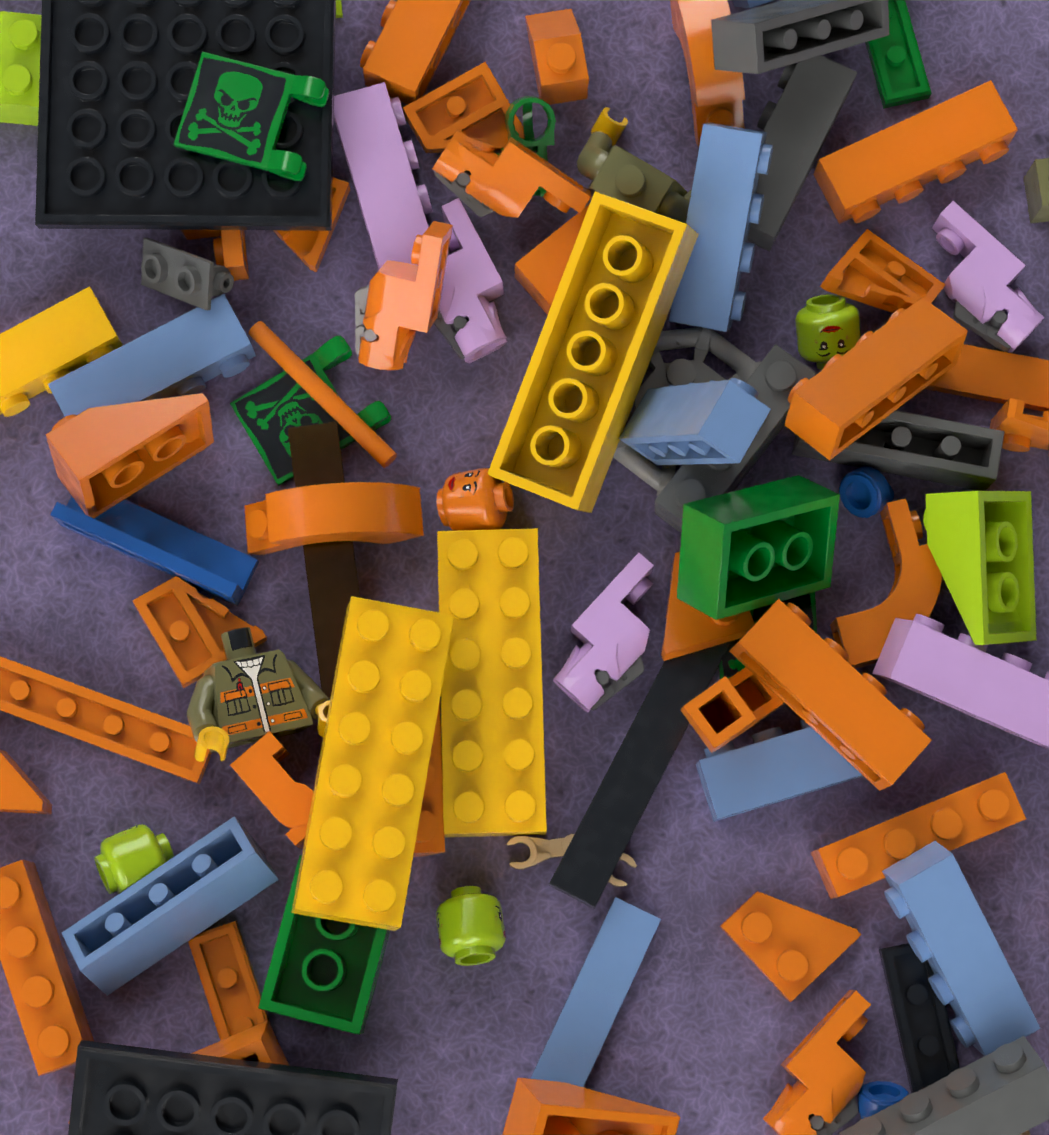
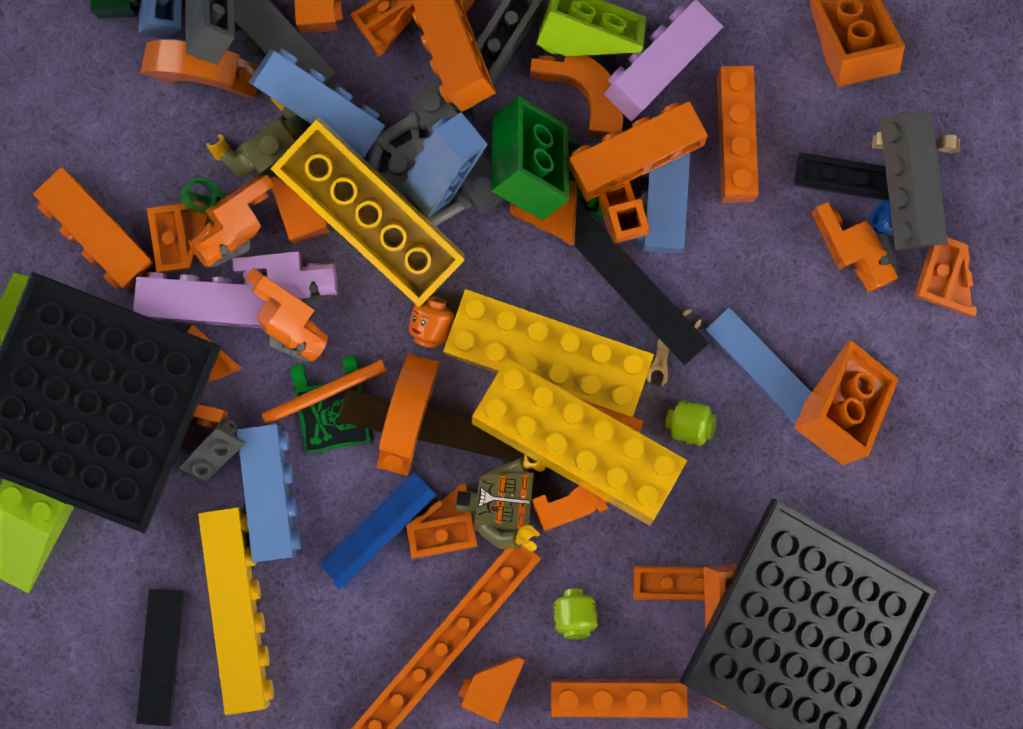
camera: 65 degrees left, 5 degrees up
(126, 446) = (313, 528): orange slope -> none
(169, 906) = (612, 602): medium blue brick -> none
(240, 111) = (125, 375): flag -> none
(323, 969) = (686, 522): green brick -> none
(558, 56) = (159, 161): orange slope -> none
(611, 641) = (549, 272): lavender plate -> none
(787, 941) = (769, 237): orange wing -> none
(826, 328) = (407, 63): lime head -> none
(865, 492) = (516, 81): blue tile -> none
(959, 948) = (814, 136): medium blue brick -> none

